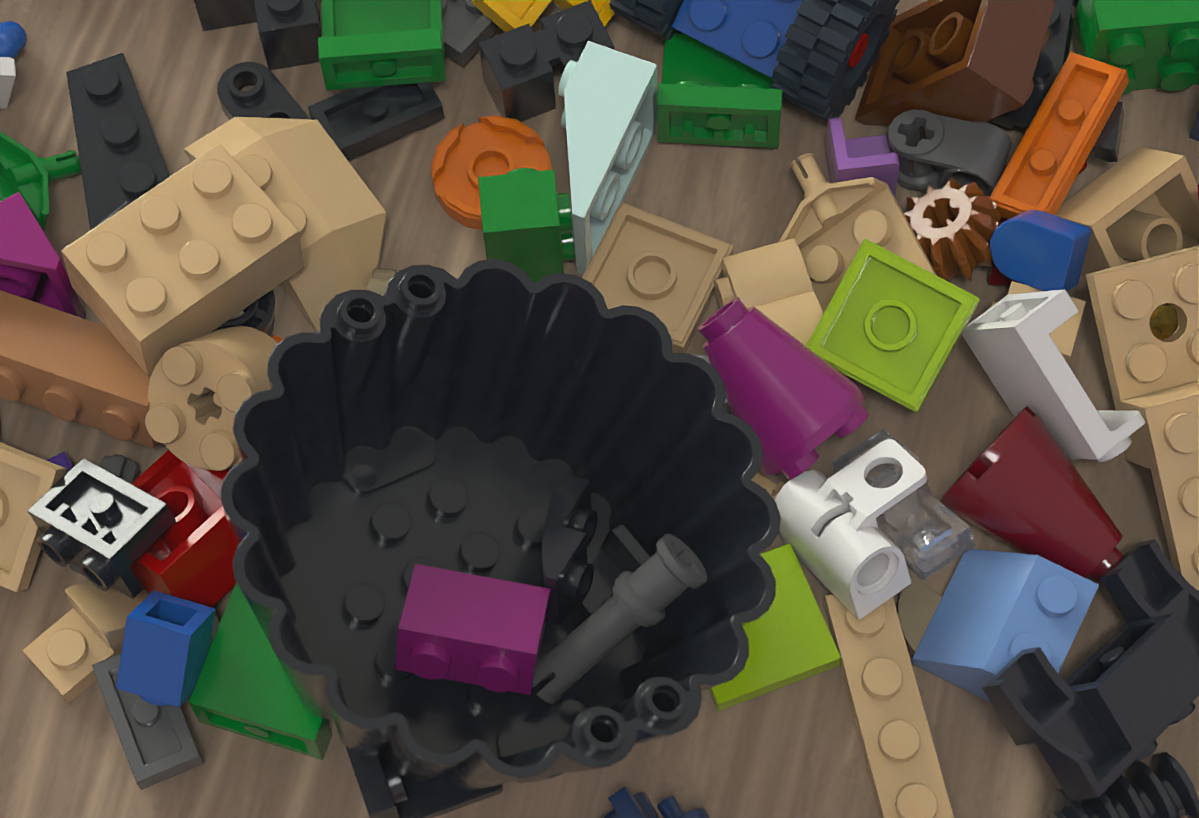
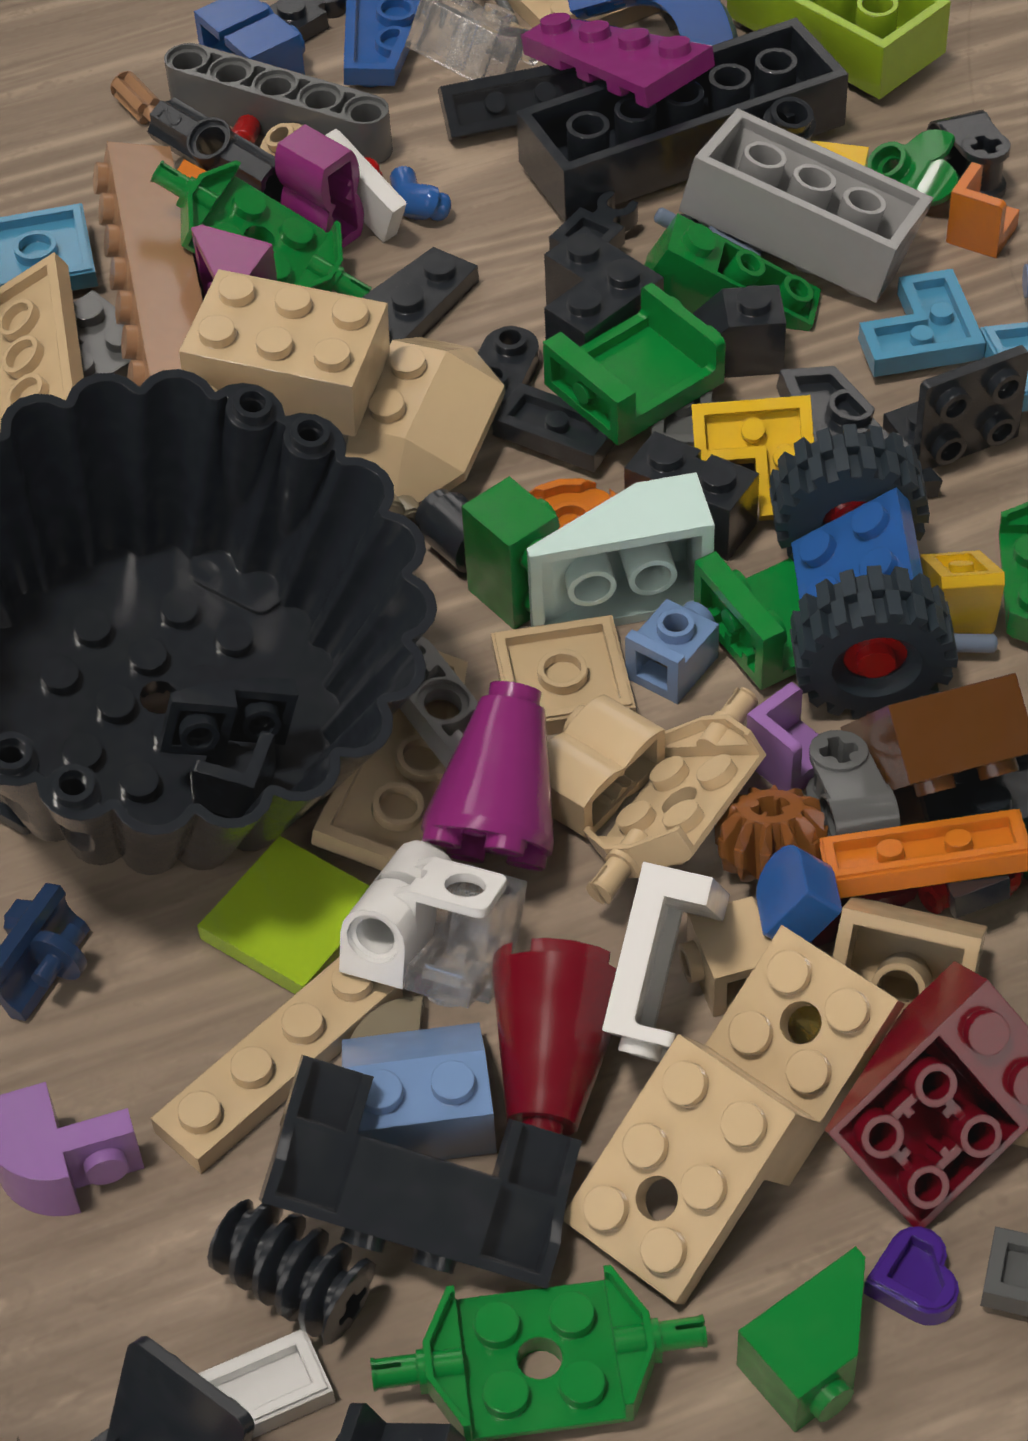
camera: 55 degrees right, 15 degrees down
(440, 246) = (442, 525): none -> black brick
(472, 629) = (101, 687): magenta brick -> none
(636, 601) = (197, 768): dark grey pin -> none
(696, 180) = (677, 637): none -> medium blue brick
(892, 325) = (618, 820): lime tile -> none

